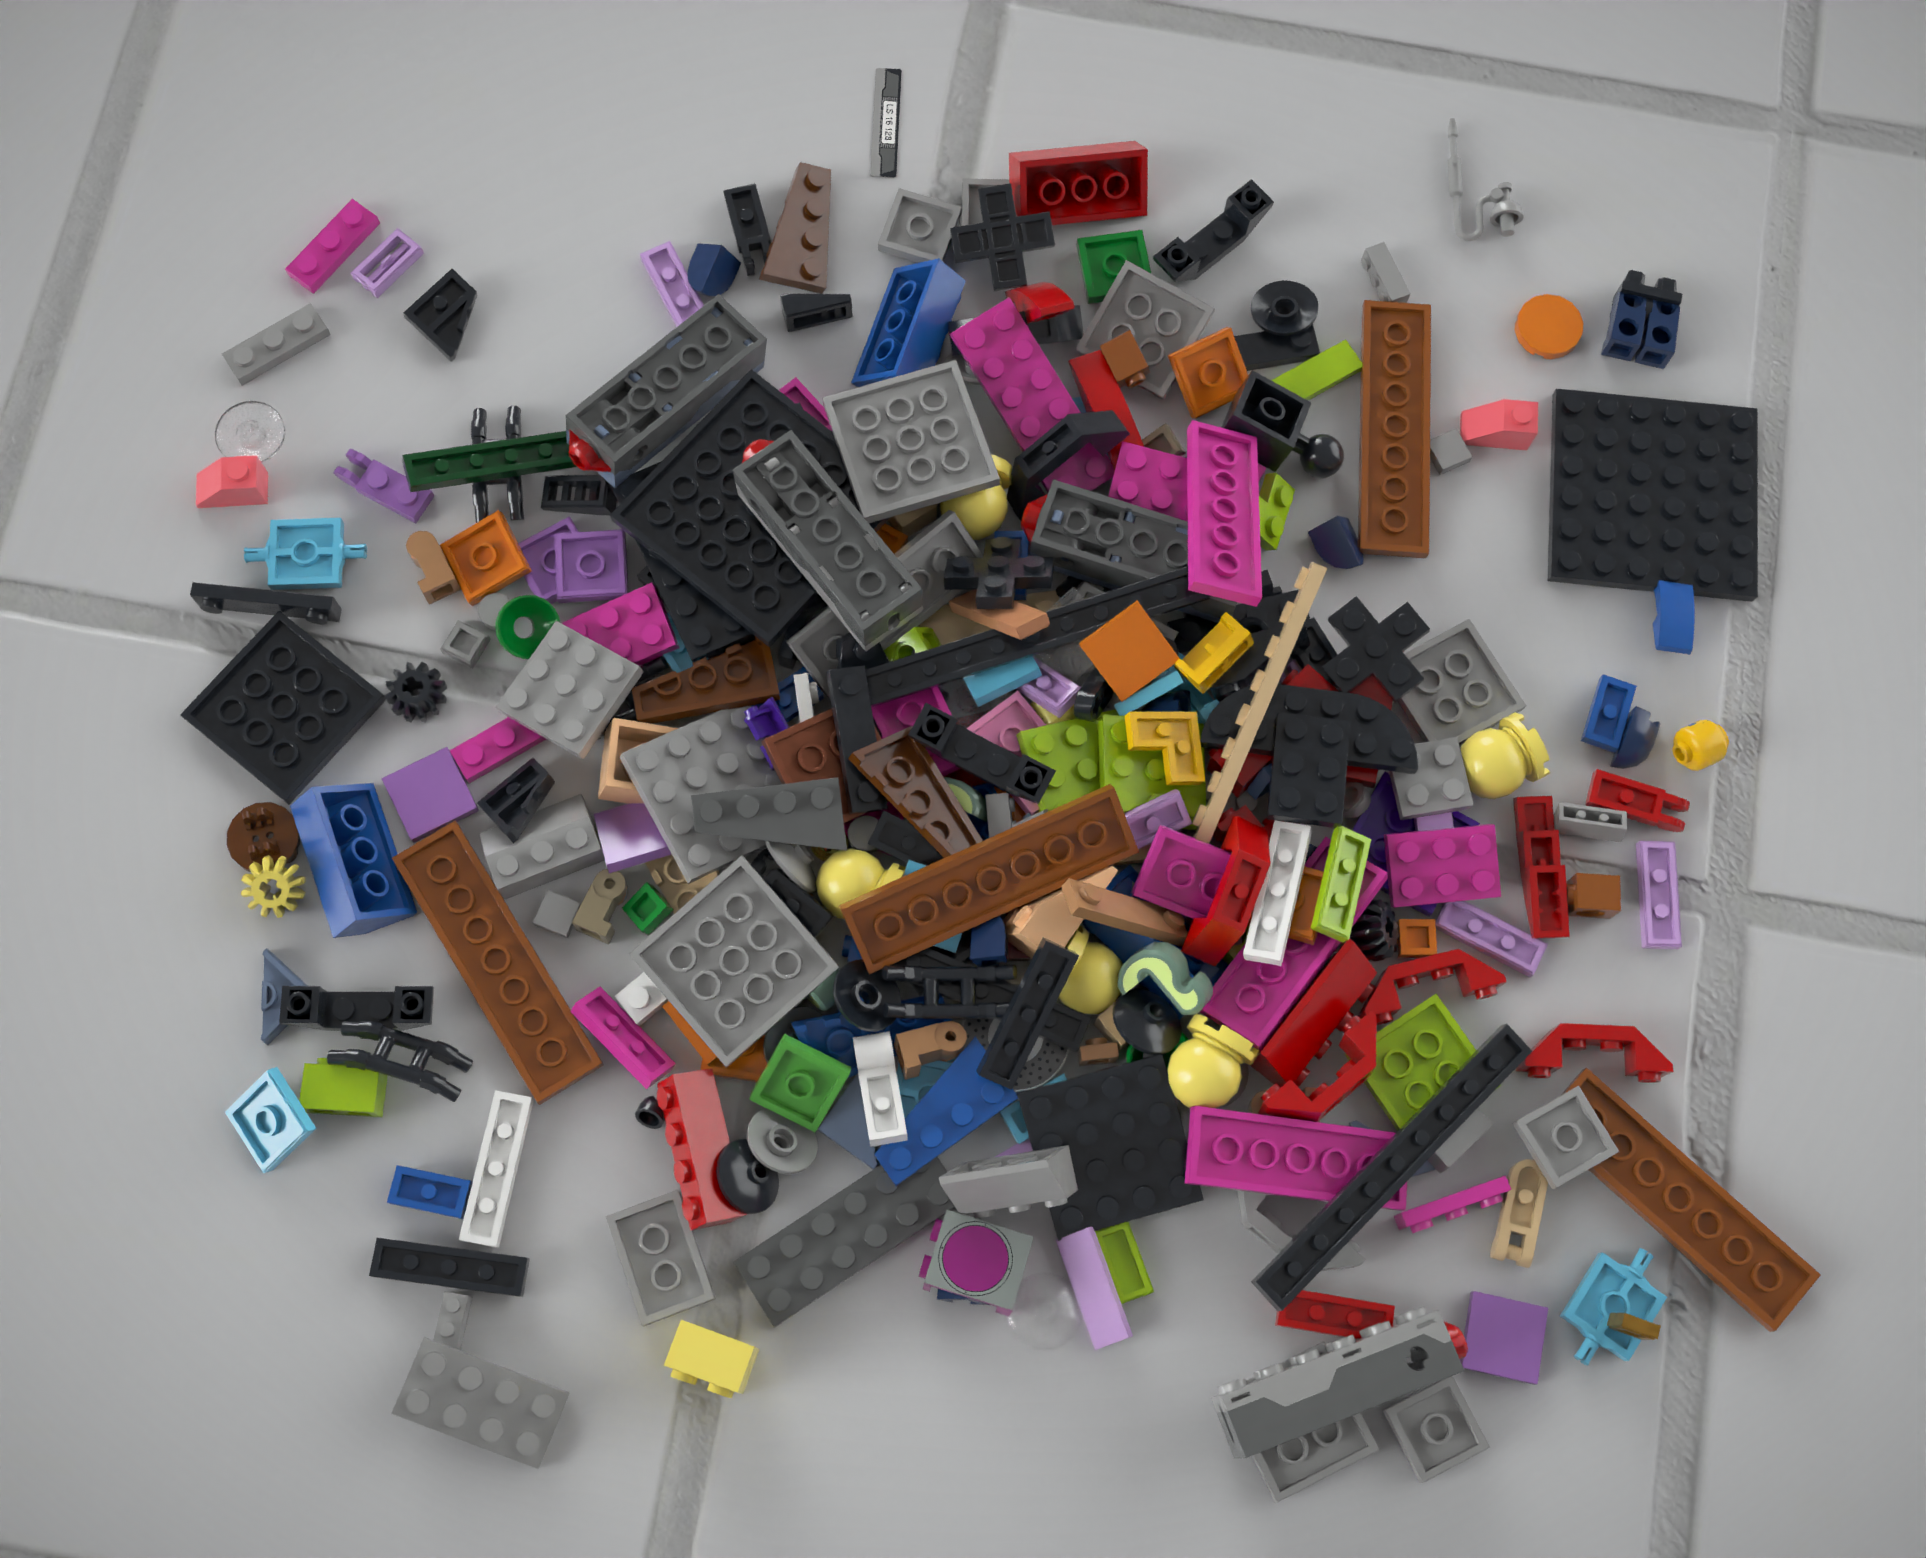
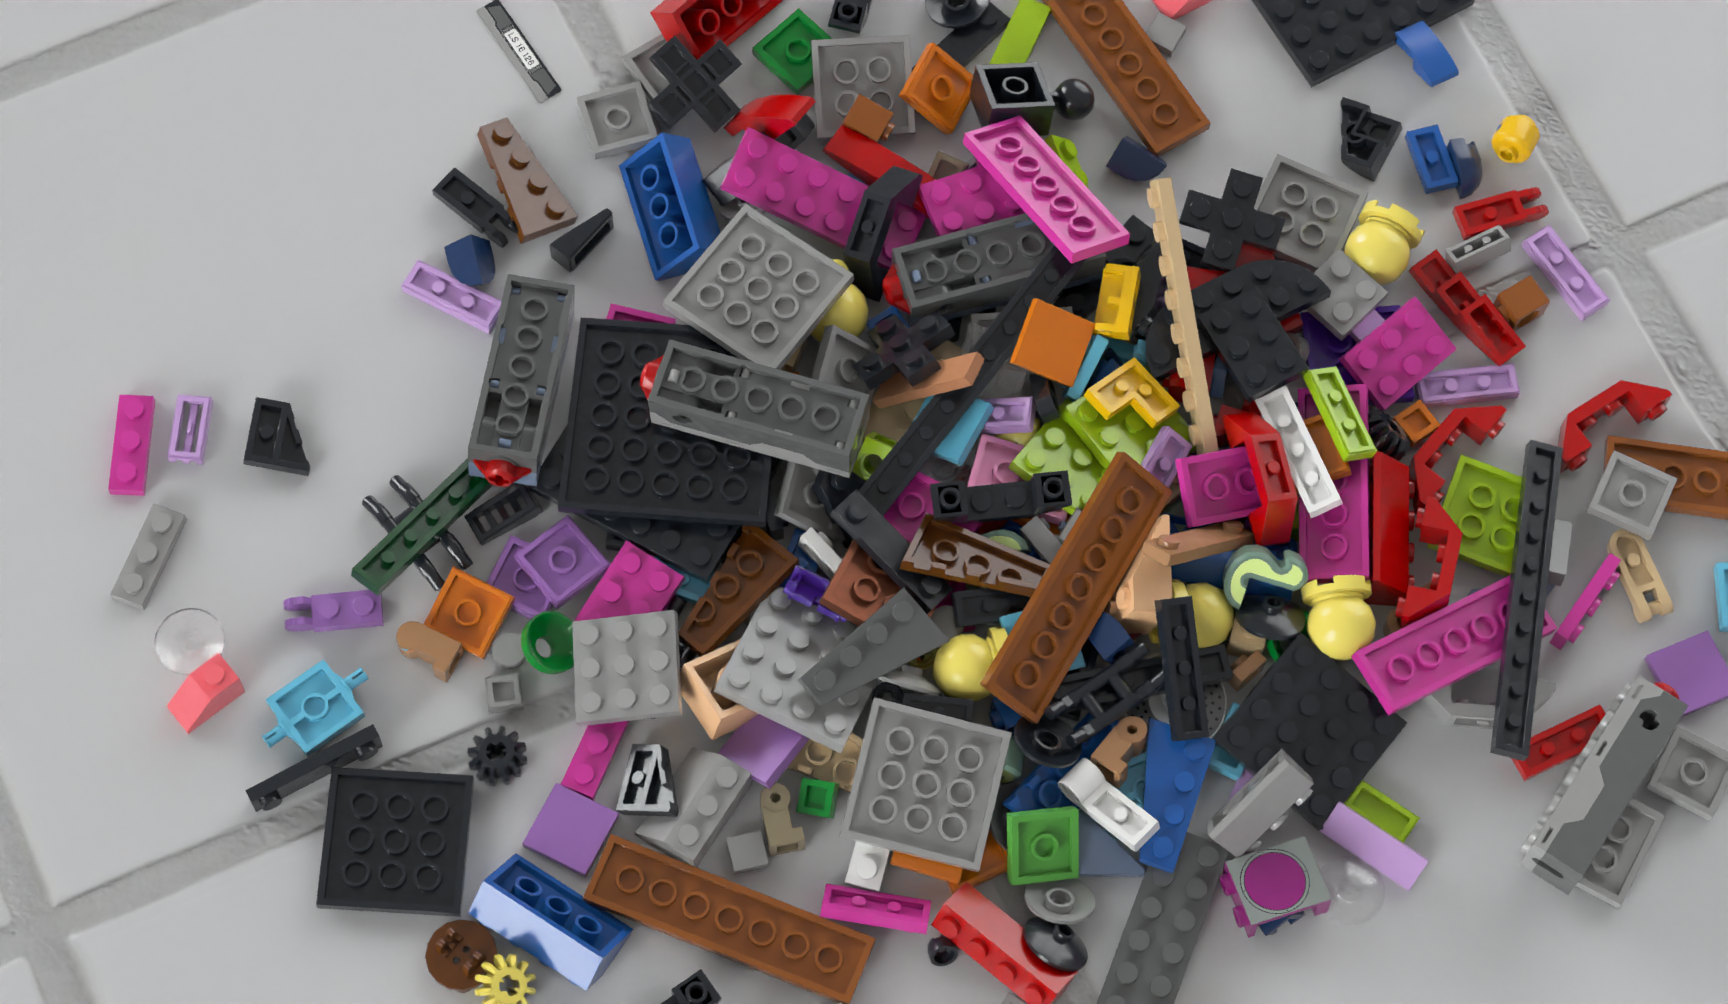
camera: 35 degrees left, 5 degrees down
(1562, 657) = (1366, 138): none -> black slope

